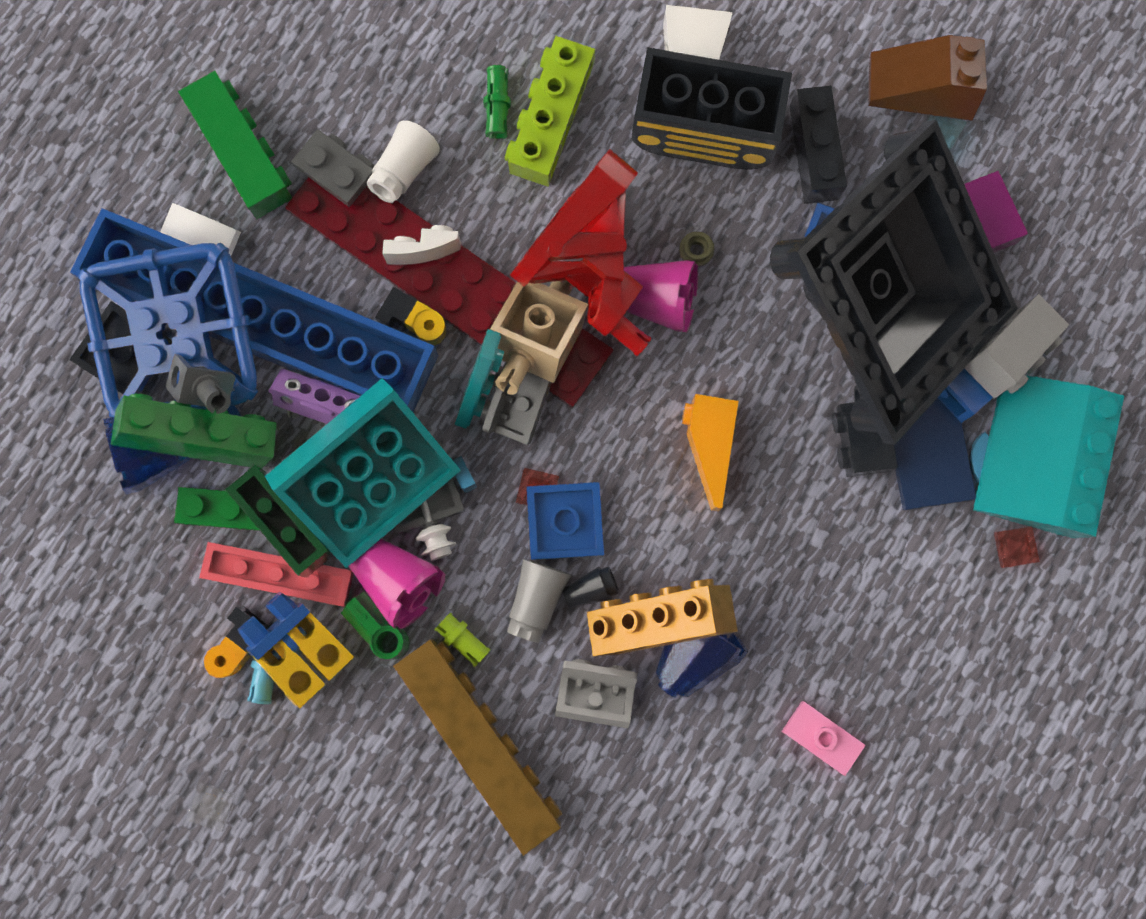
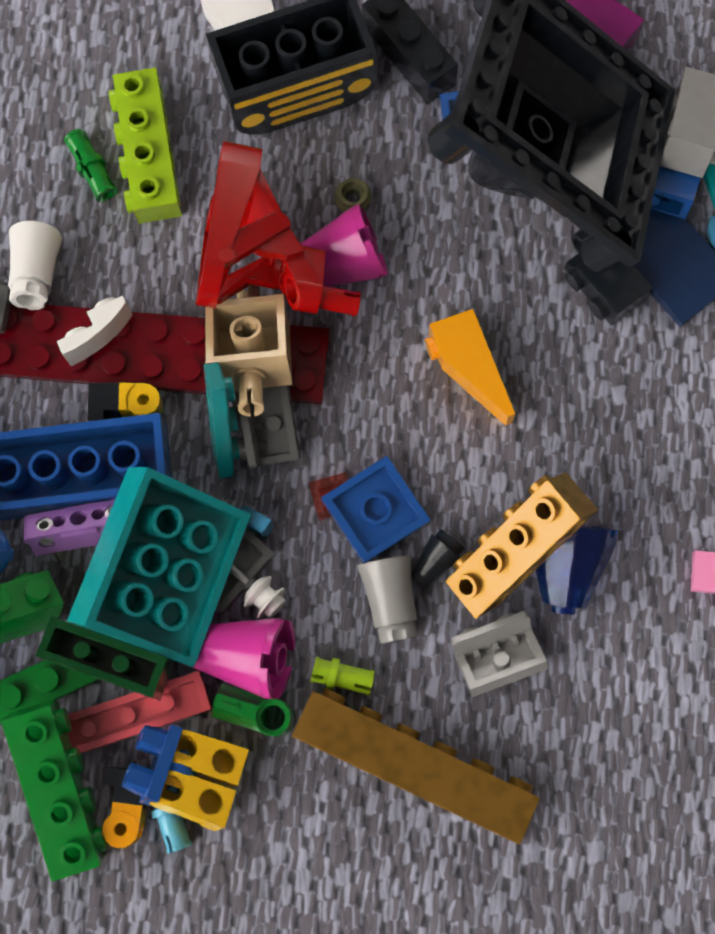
camera: 20 degrees left, 5 degrees down
(186, 600) = (55, 789): none -> green brick

